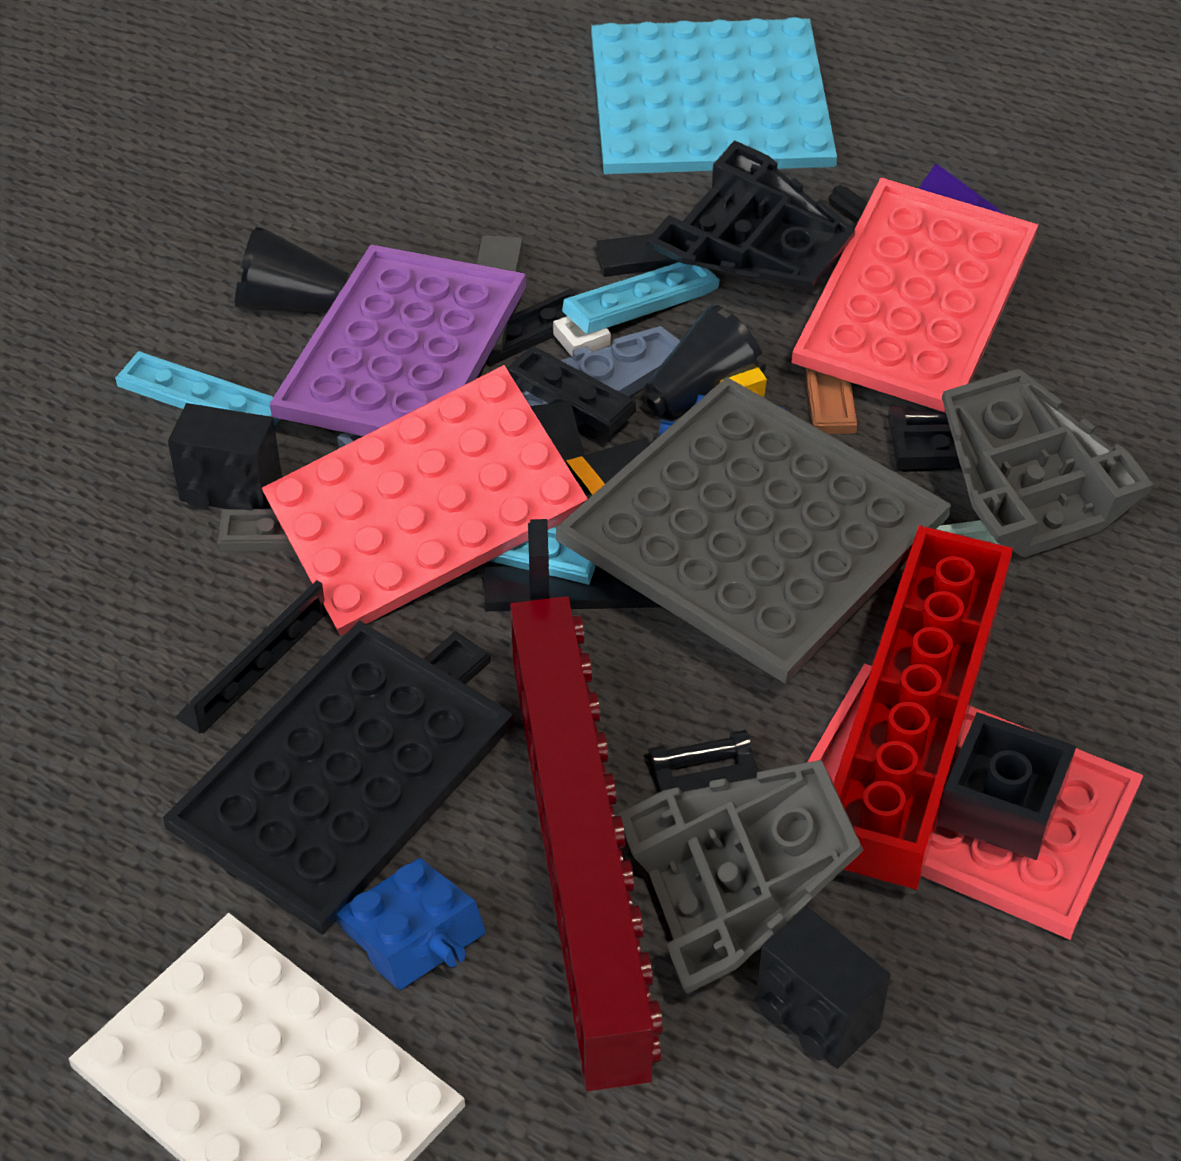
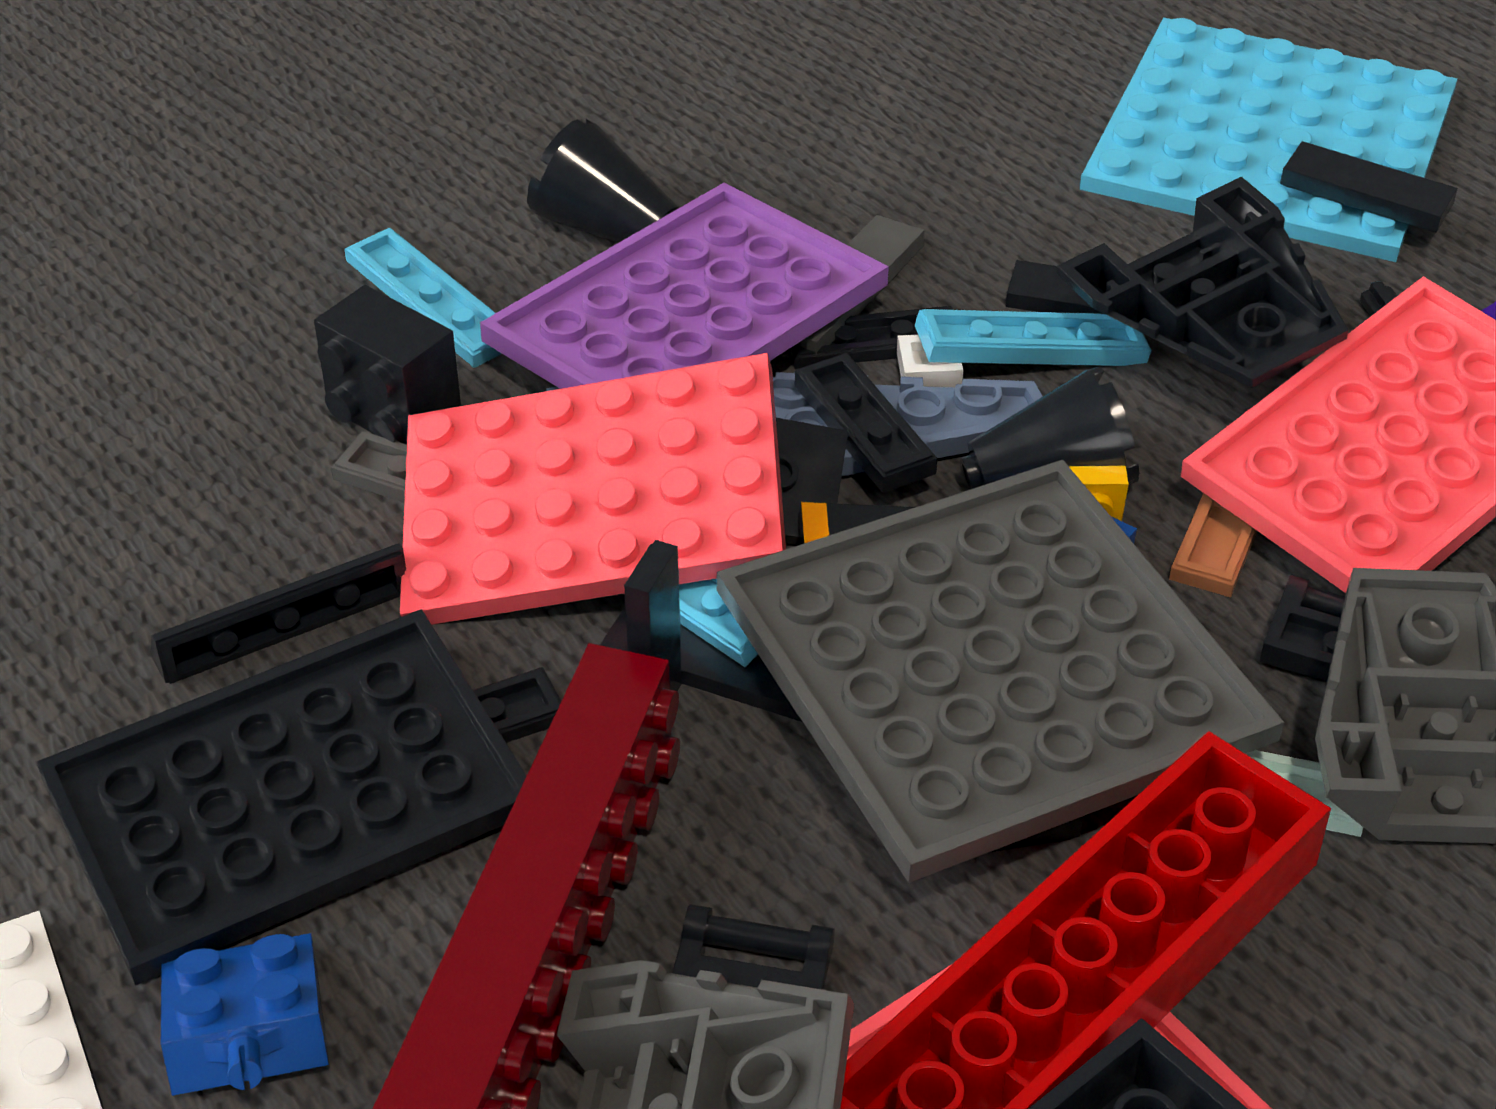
camera: 25 degrees right, 5 degrees down
(800, 118) = (1368, 186): none -> black tile

